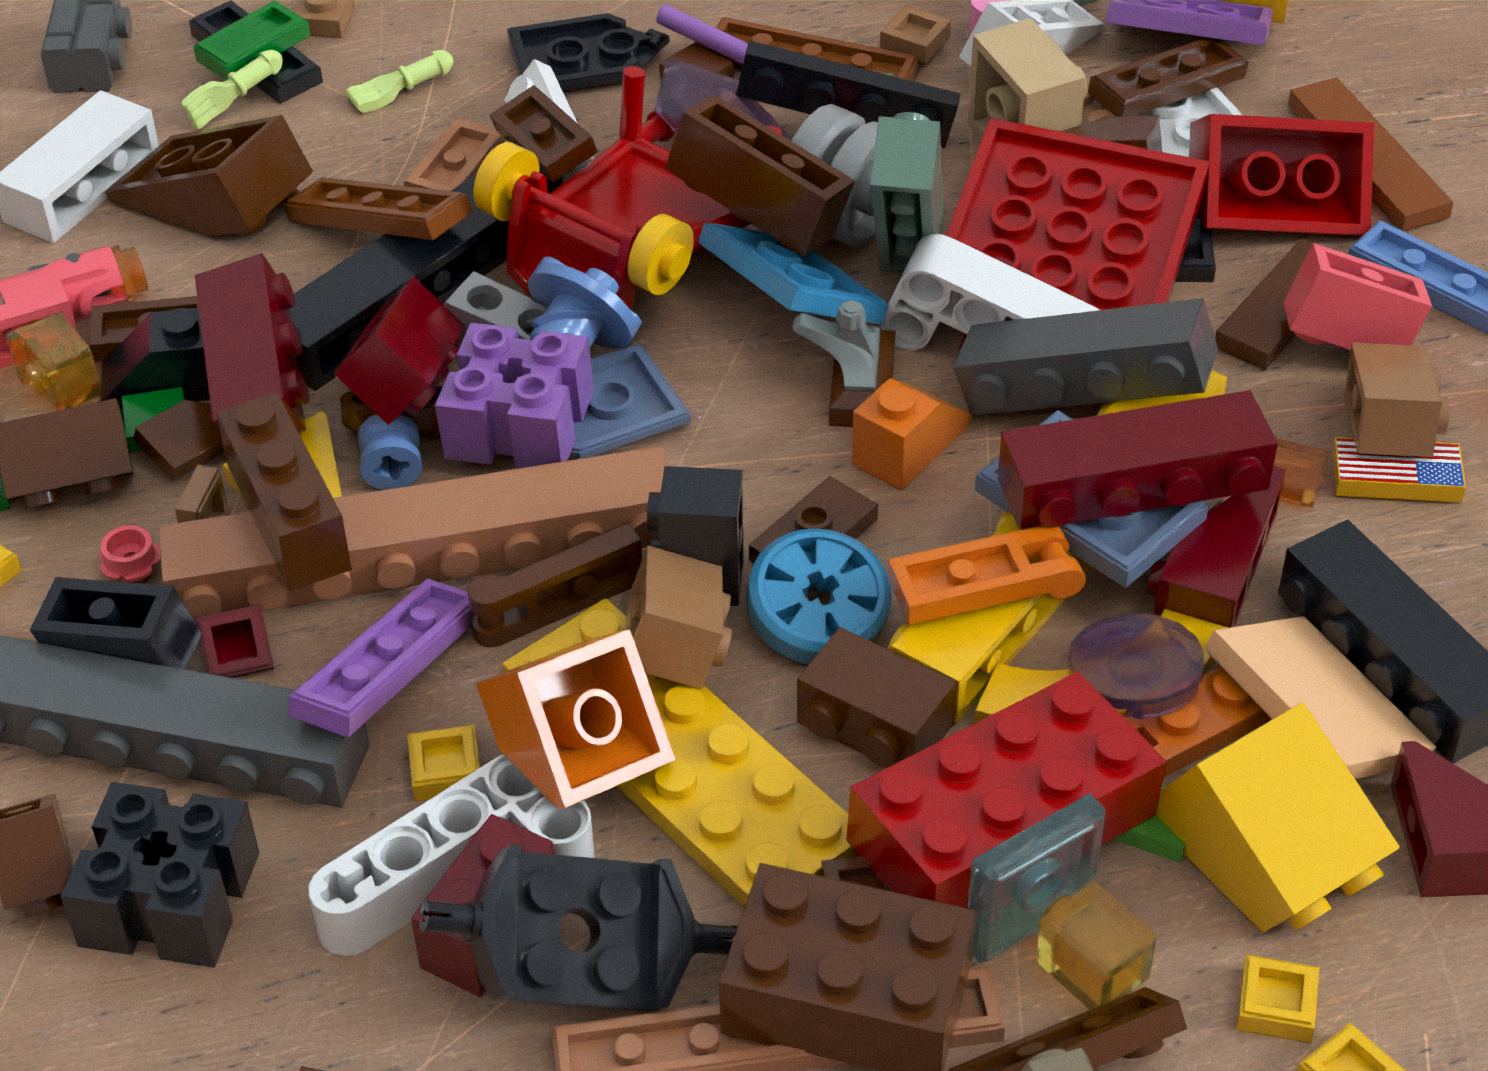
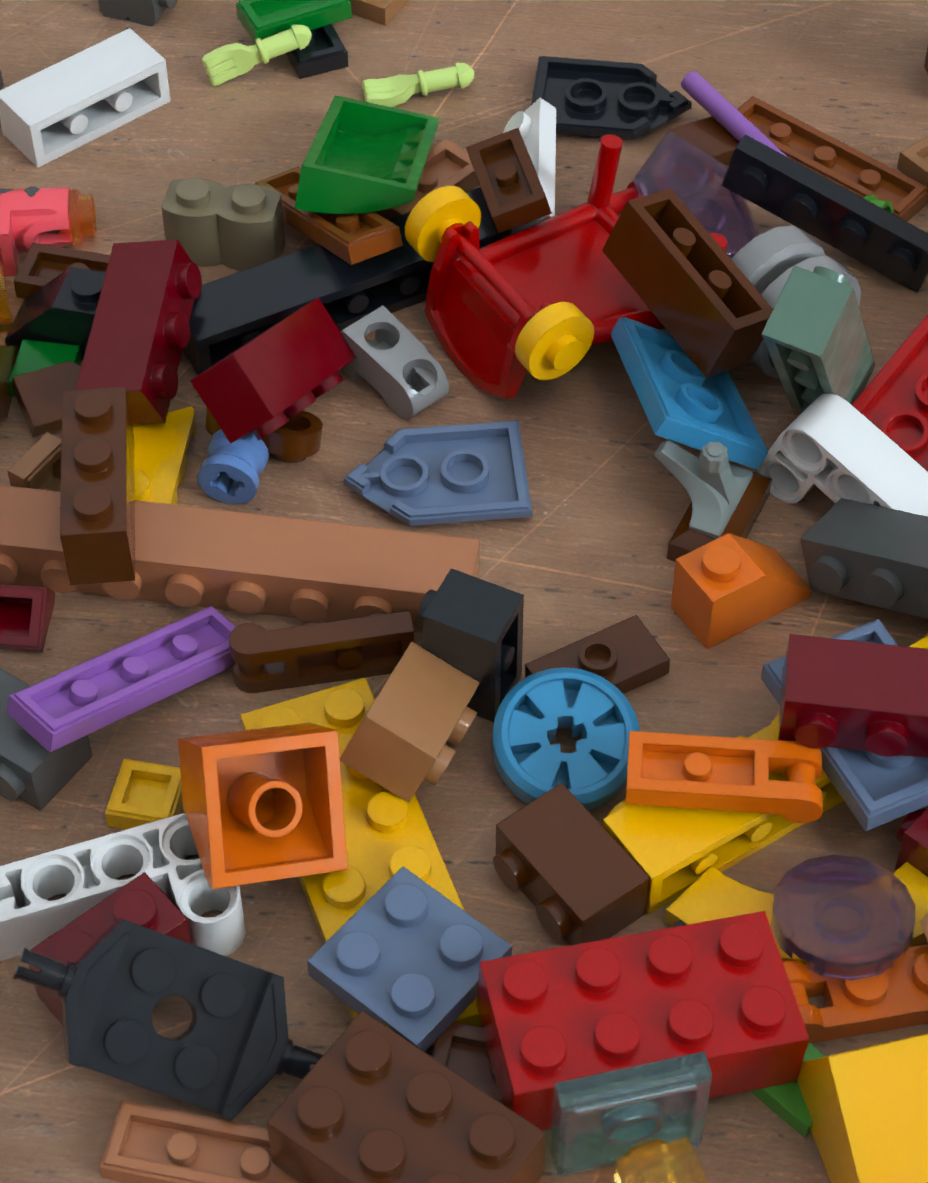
camera: 20 degrees right, 5 degrees up
(217, 177) = (202, 136): reddish brown slope -> none
(290, 234) = (224, 224): none -> dark tan brick
(395, 149) = (365, 158): none -> green slope
(515, 396) = (364, 447): medium lavender brick -> none
(581, 305) = (457, 379): medium blue plate -> none
(769, 812) = (407, 959): none -> sand blue plate

